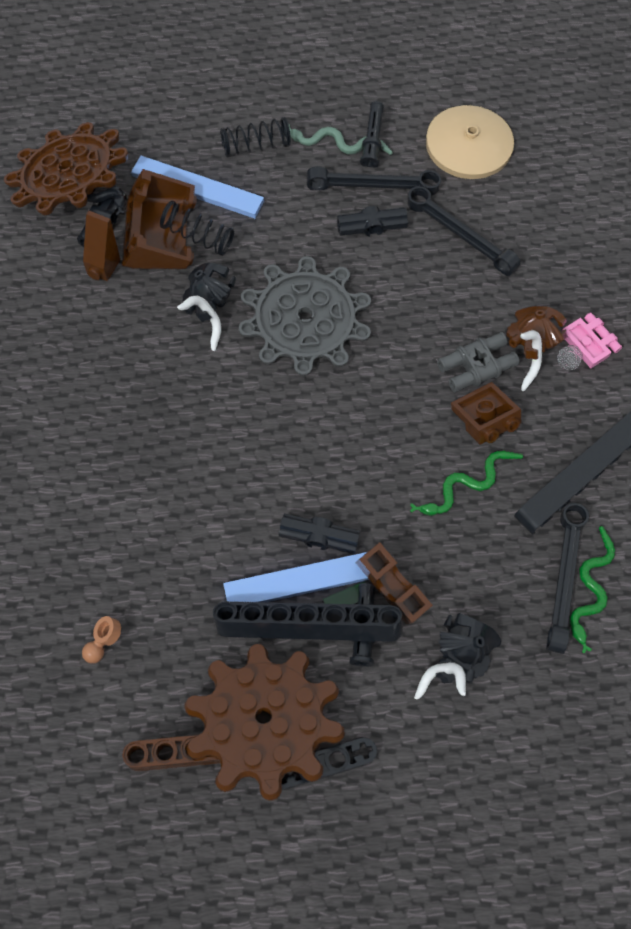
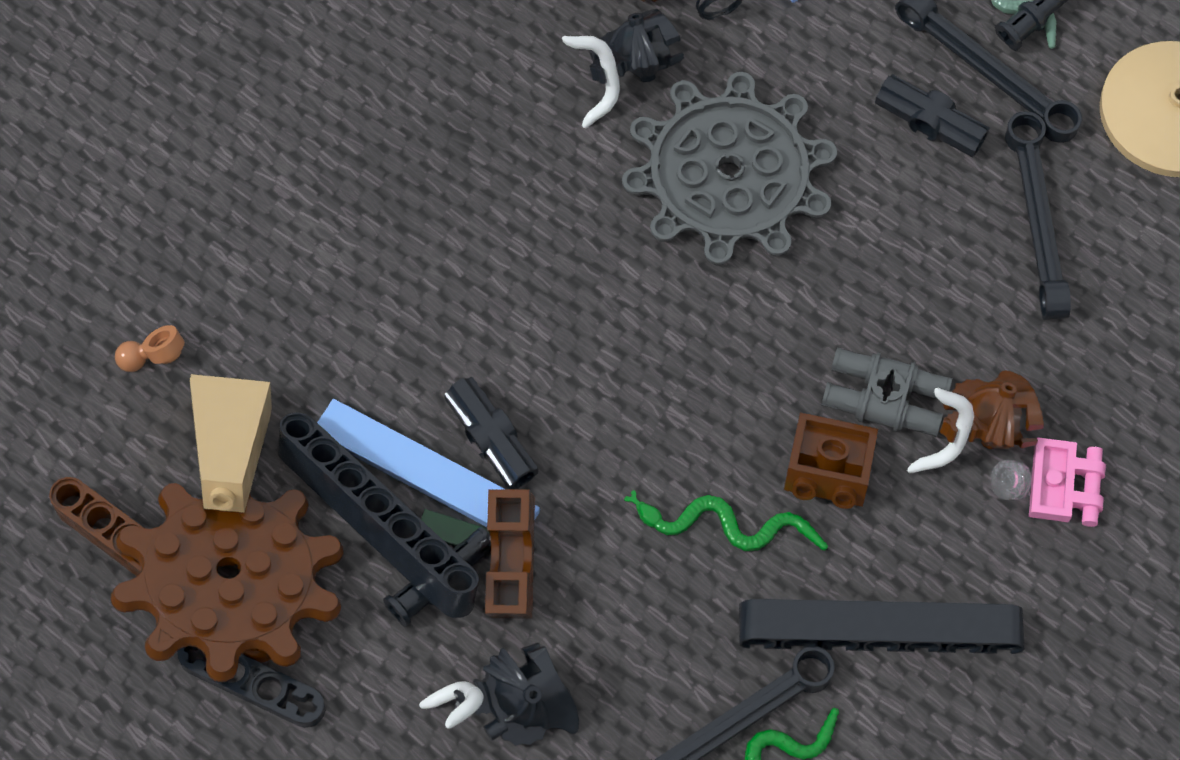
camera: 45 degrees right, 0 degrees up
(193, 649) = (229, 435): none -> tan slope

